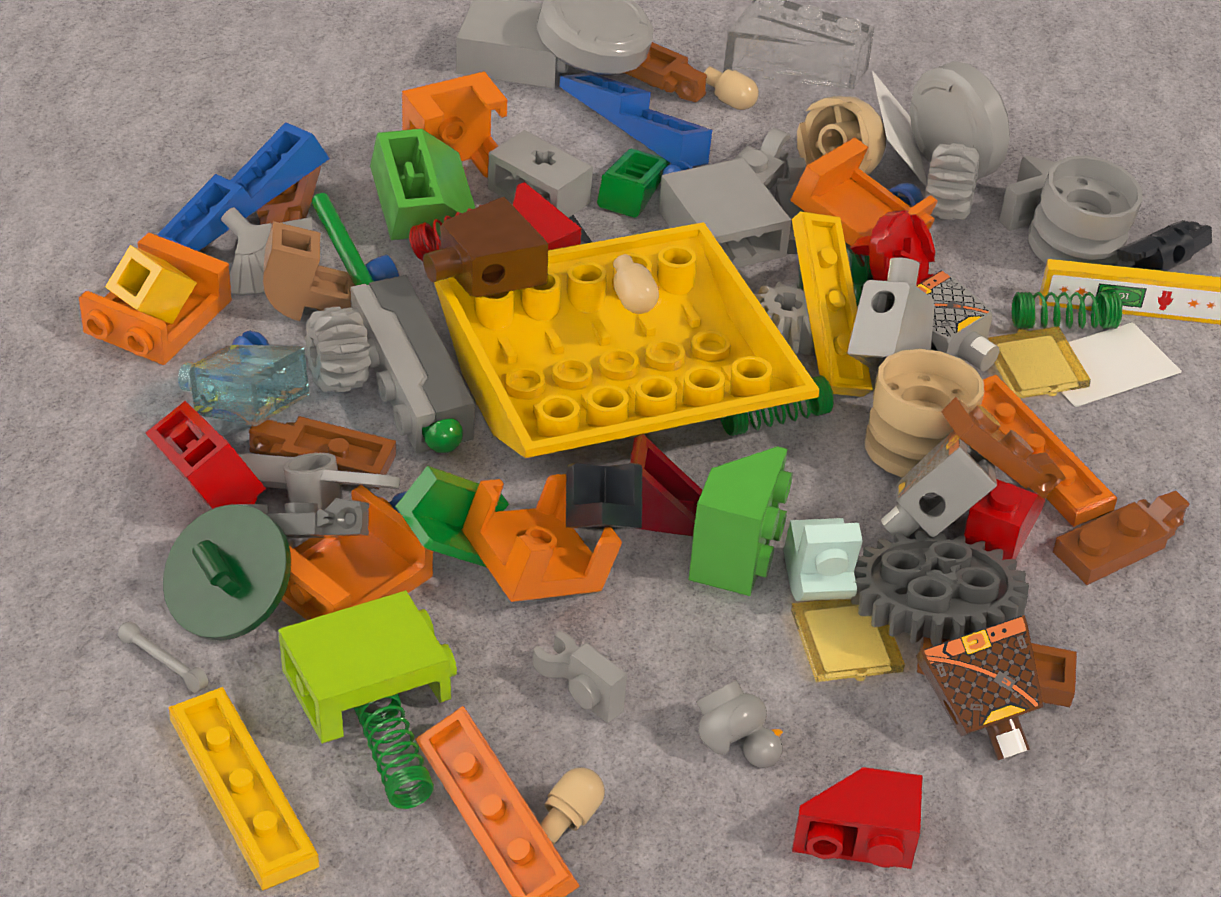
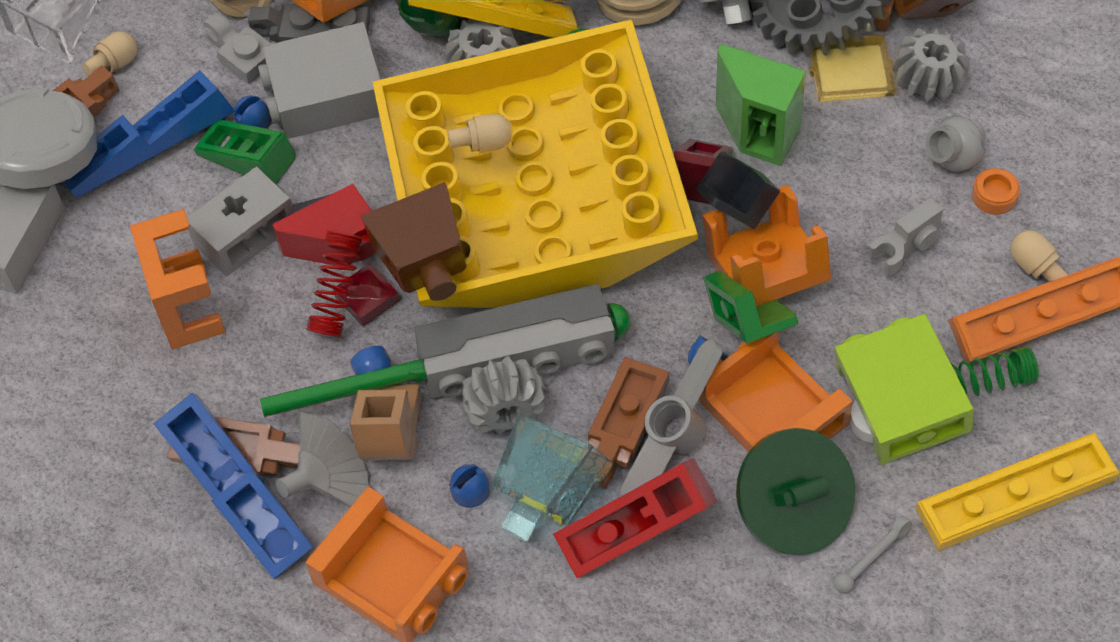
camera: 75 degrees left, 15 degrees up
(150, 284) = (394, 557): yellow brick -> none
(306, 521) = (744, 425): dark grey hinge -> none
(417, 180) = (258, 321): bright green slope -> none
(677, 773) = (995, 191): none -> orange tile
(822, 558) = (807, 52): light aqua brick -> none
(853, 695) = (931, 64): none -> light grey gear
(864, 819) = (1047, 74): red slope -> none

